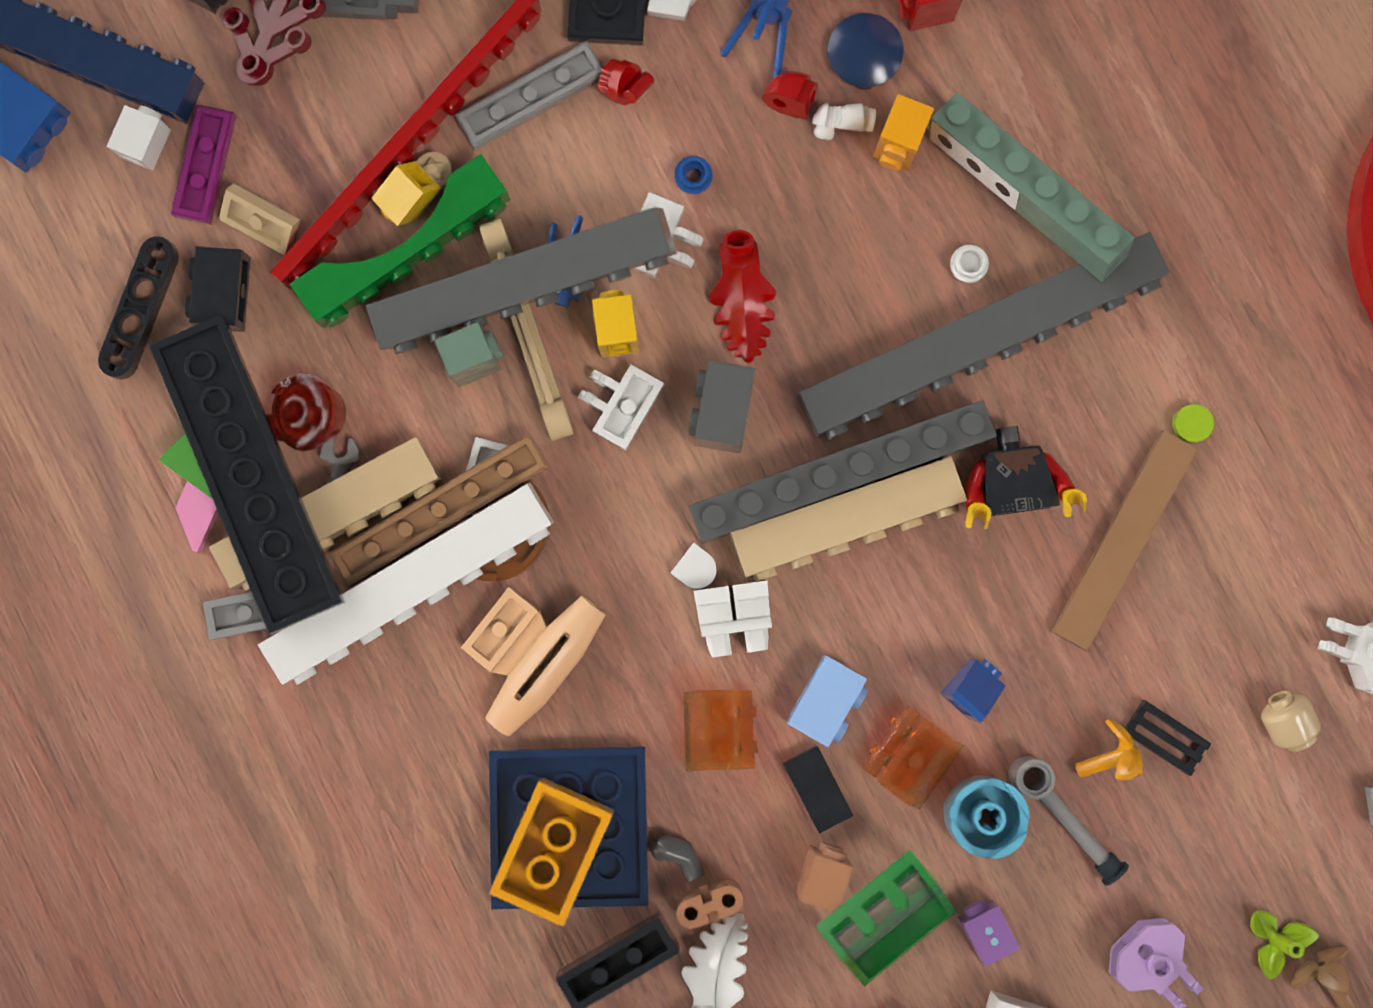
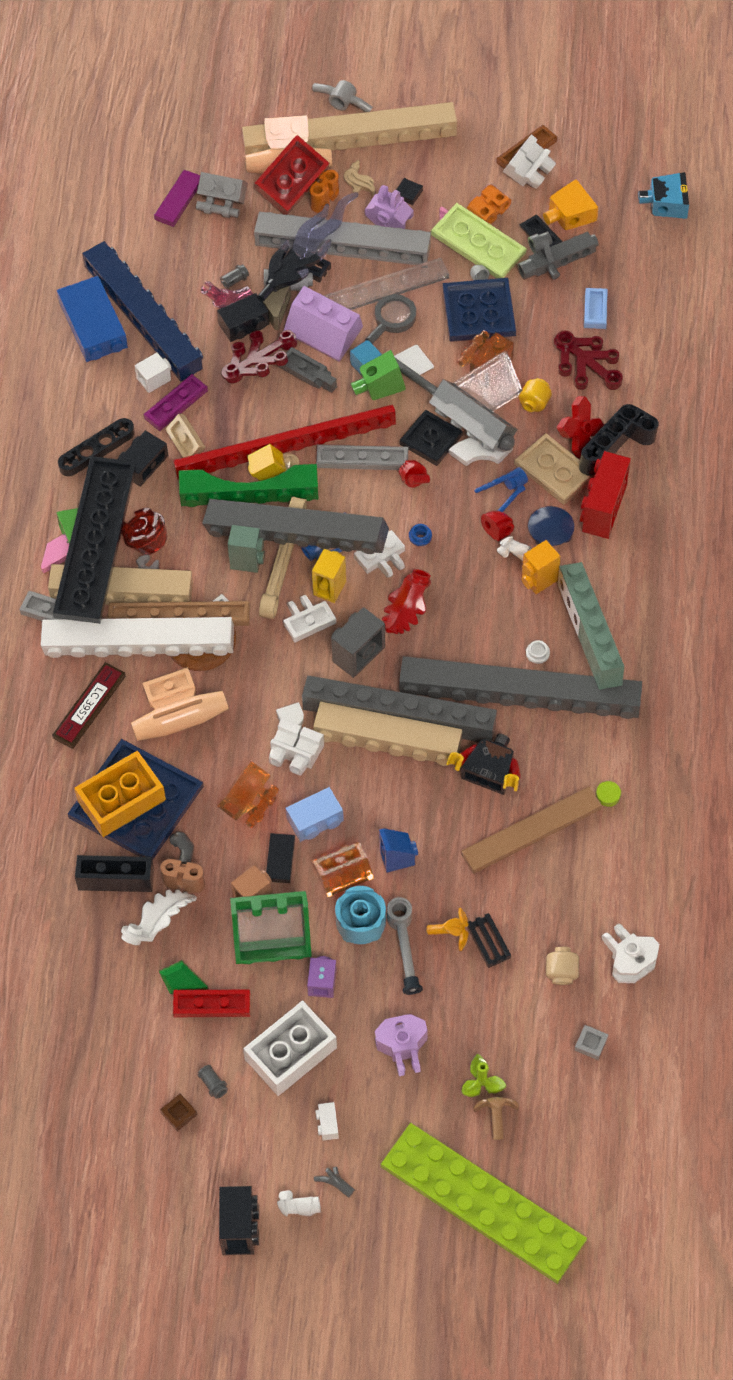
camera: 30 degrees right, 25 degrees down
(406, 722) = (89, 705): none -> tile

